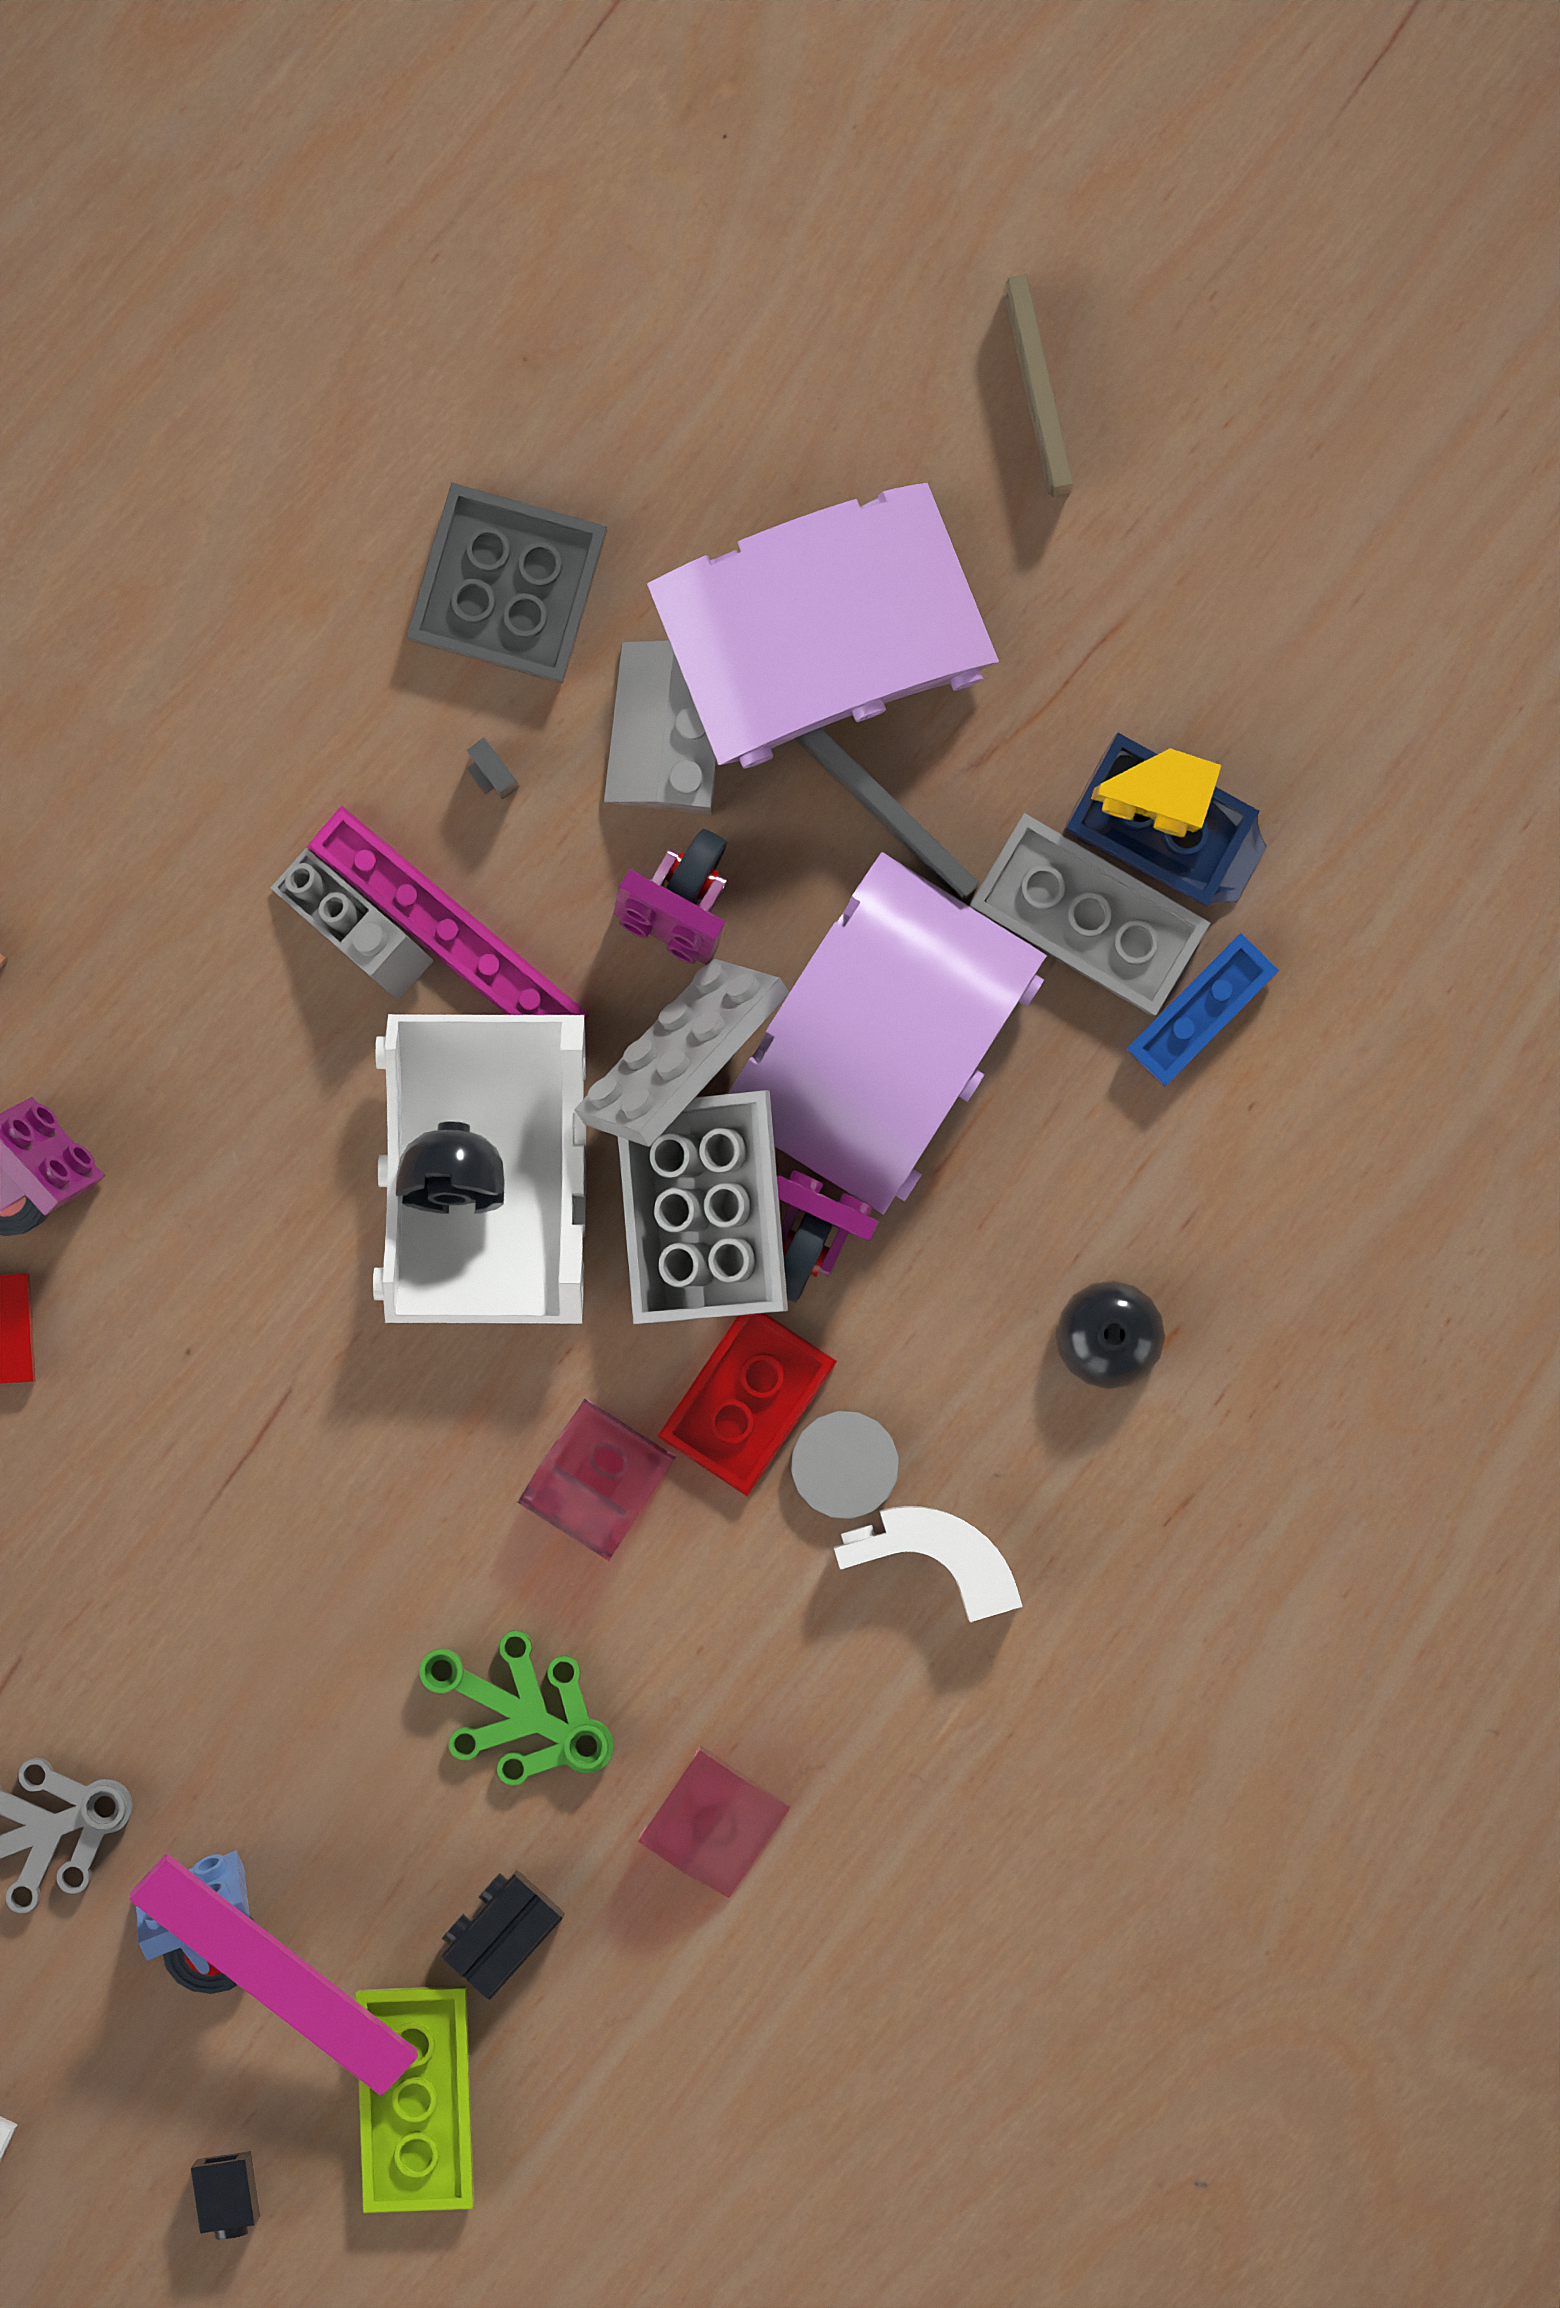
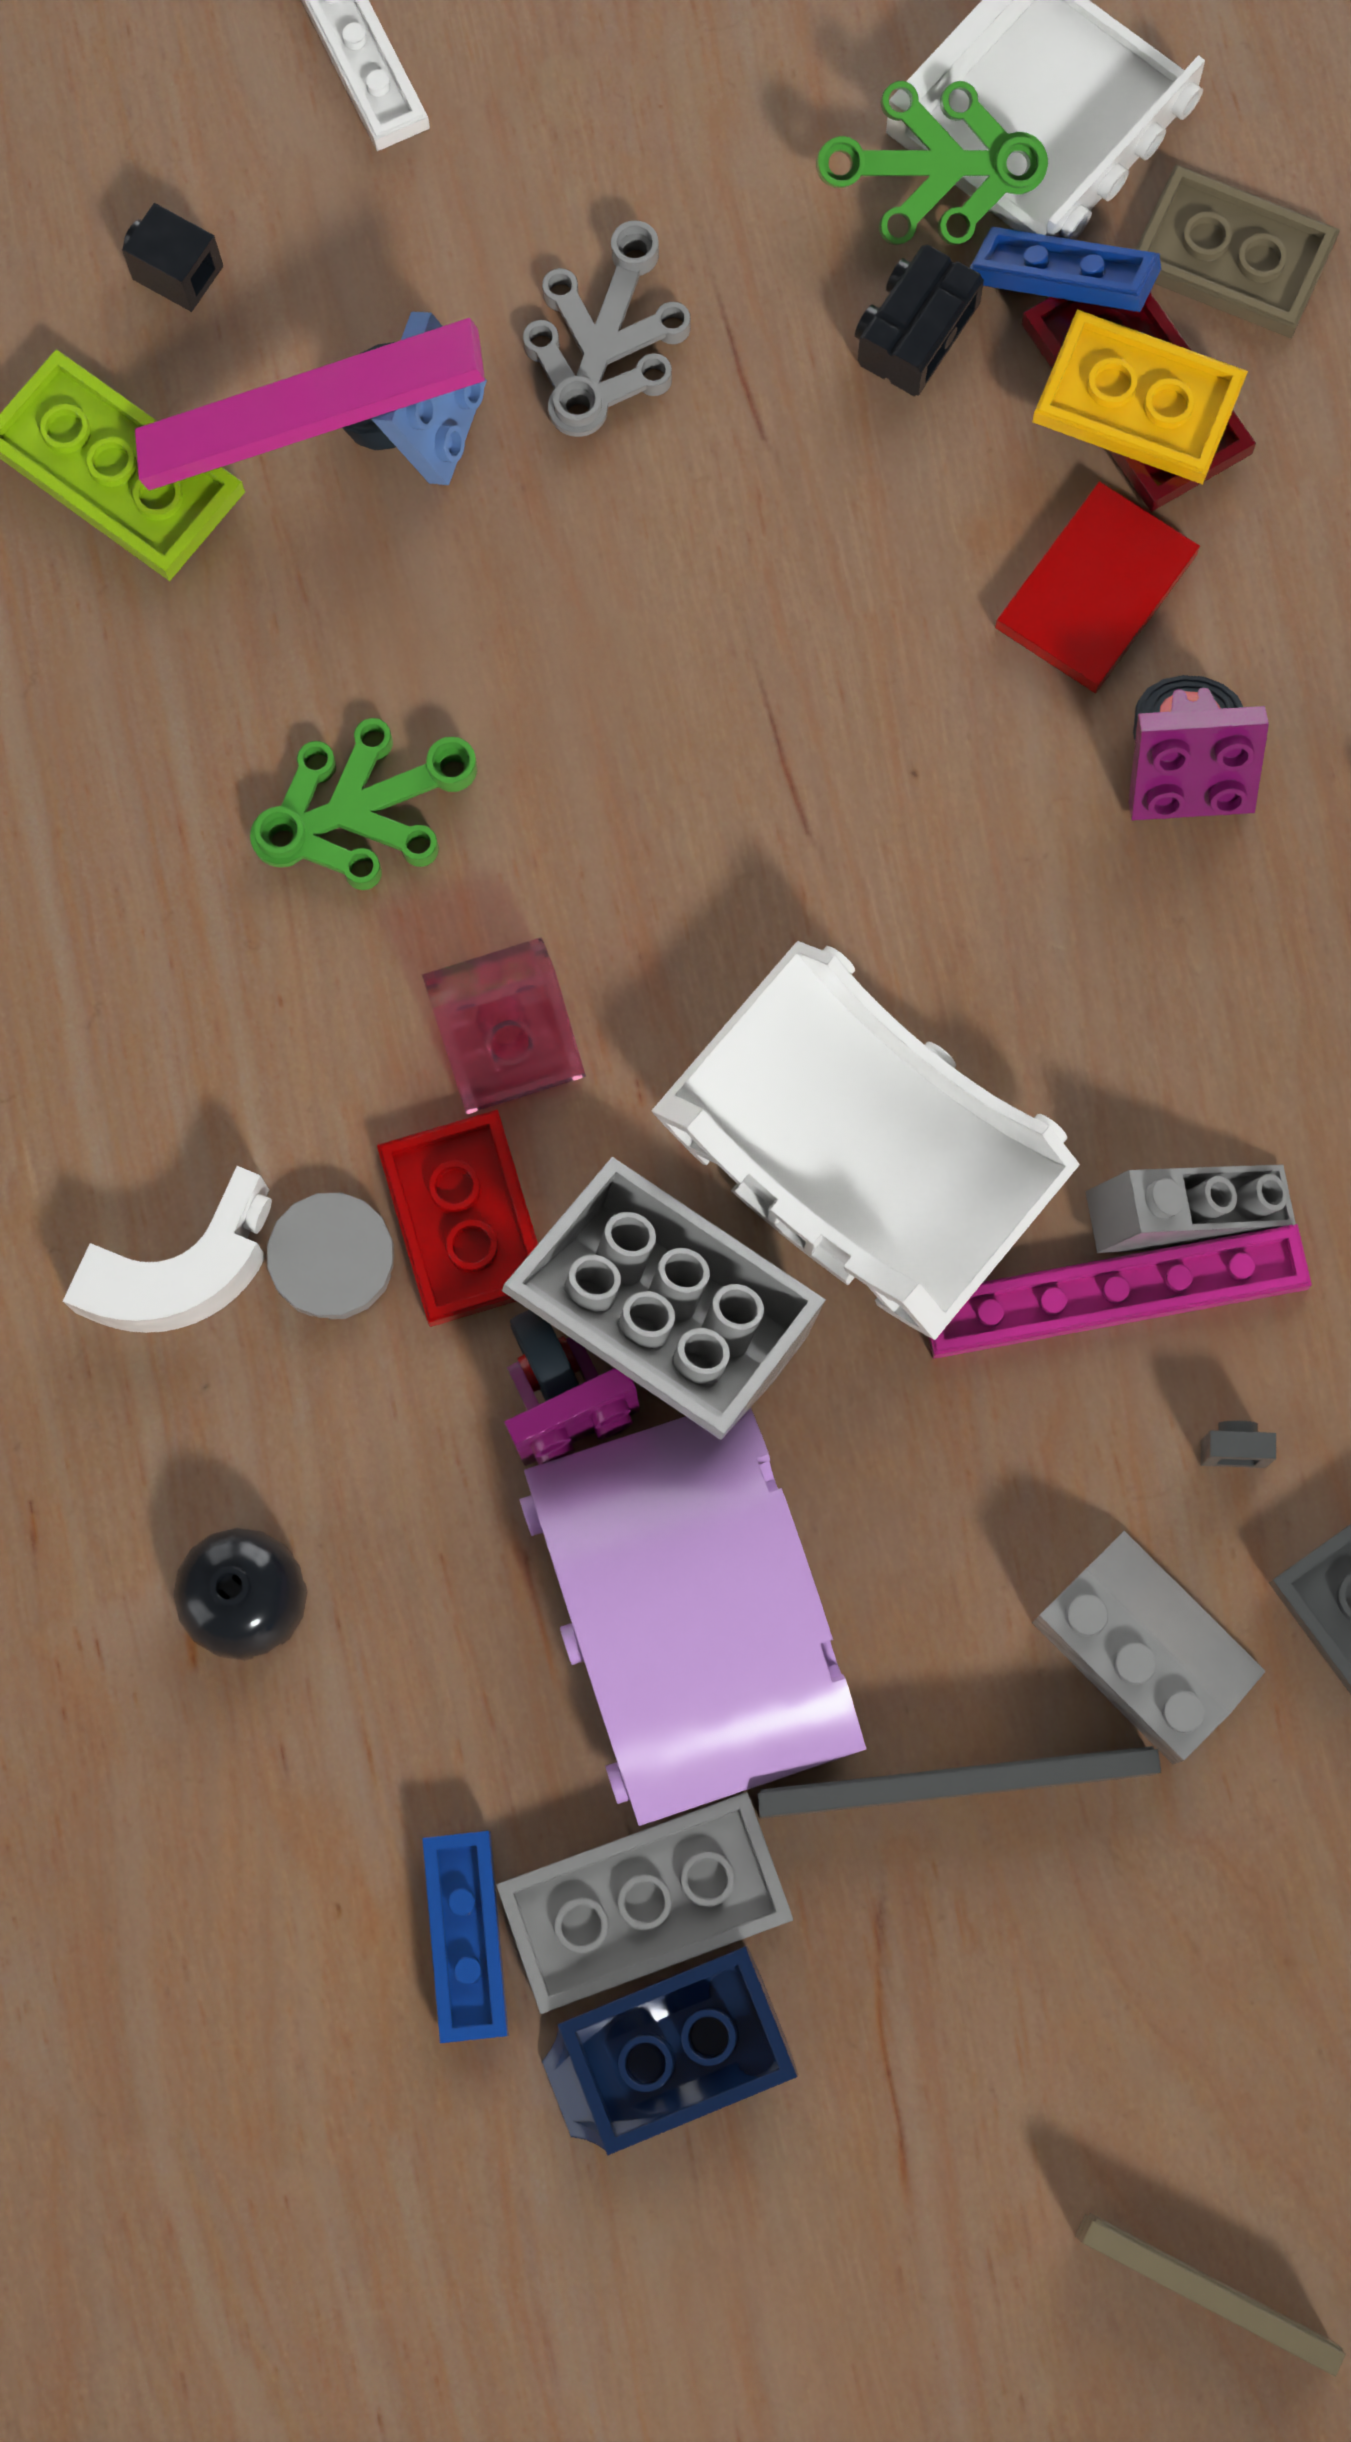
camera: 135 degrees right, 10 degrees down
(451, 1169) = (889, 1107): black cylinder -> none
(501, 1933) = (184, 637): black brick -> none
(672, 911) = (981, 1536): magenta plate -> none
(681, 1051) = (826, 1398): light grey plate -> none
(713, 1822) = (121, 886): clear pink slope -> none
(822, 622) = (1136, 1875): lavender panel -> none
(1167, 788) = (704, 2076): yellow slope -> none

